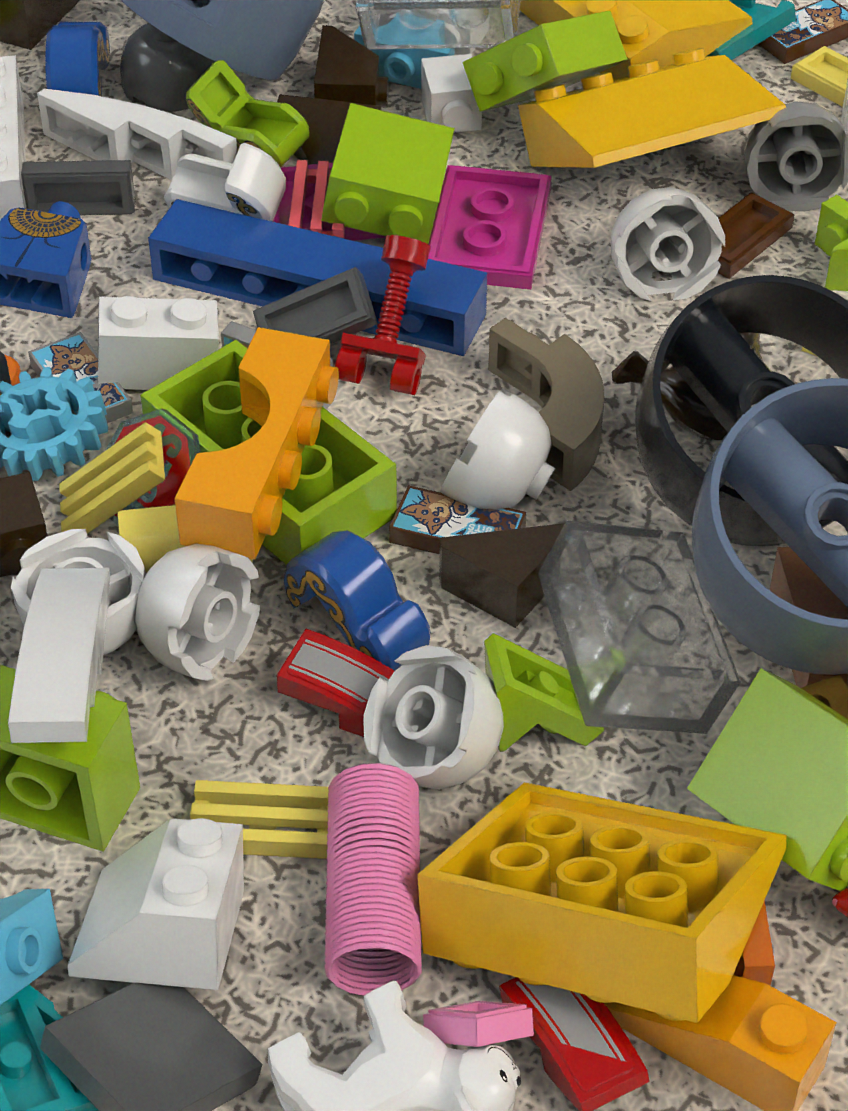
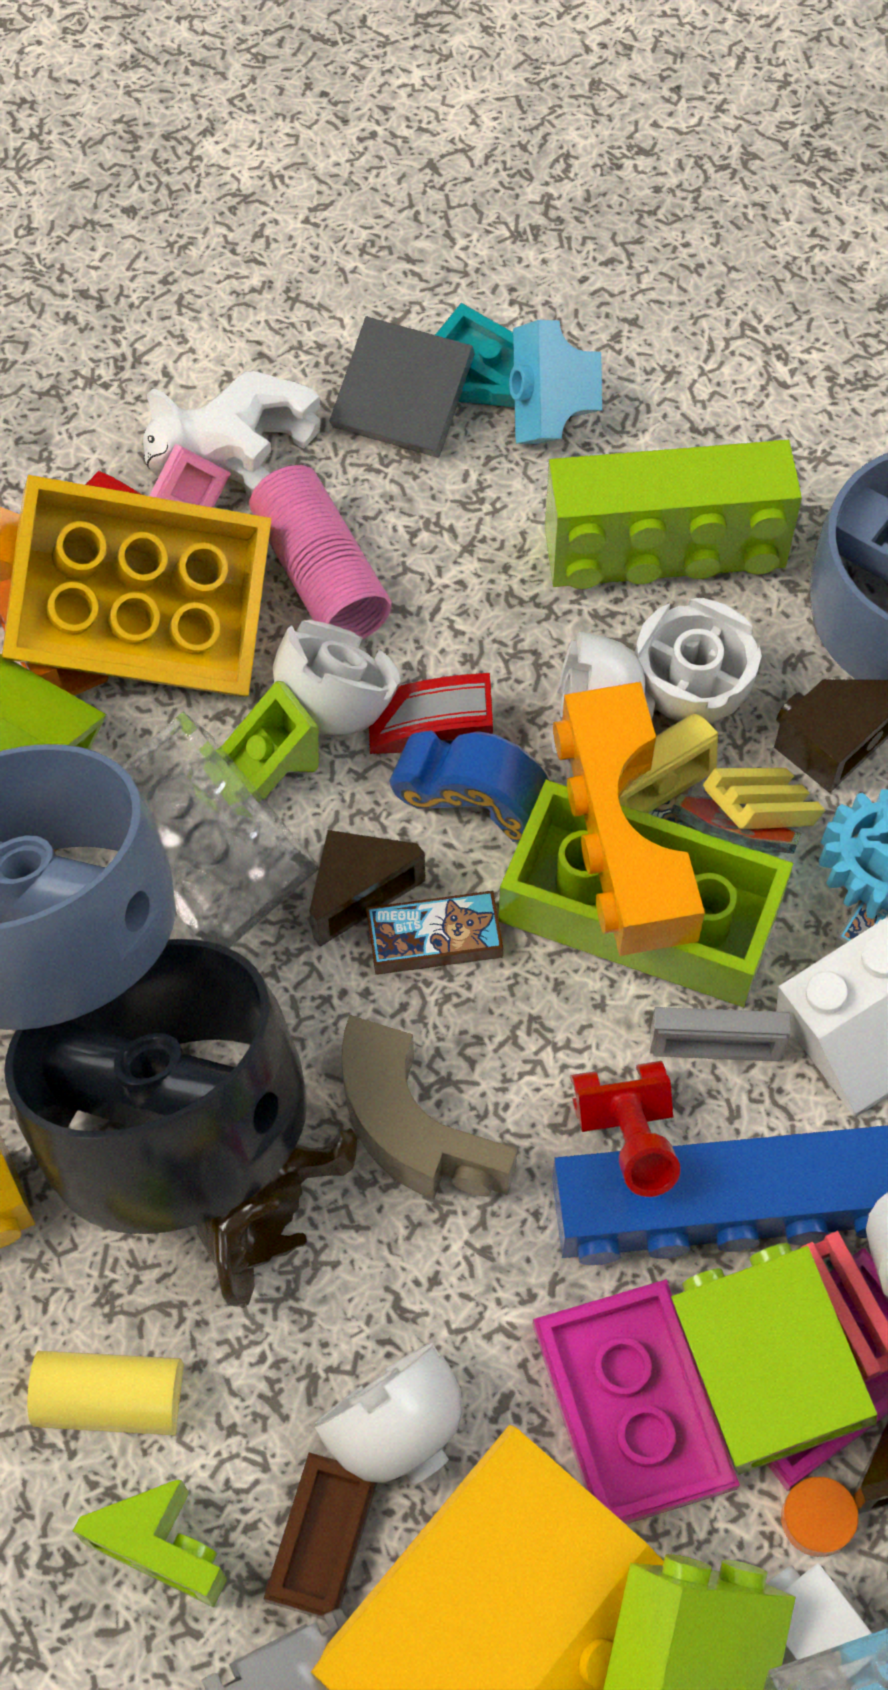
camera: 155 degrees right, 15 degrees up
(60, 656) = (638, 530): white slope -> none
(165, 908) = (454, 466): white slope -> none
(264, 809) = (436, 580): light yellow tile -> none
(323, 309) = (717, 1102): dark grey tile -> none
(502, 457) = (422, 992): white cylinder -> none

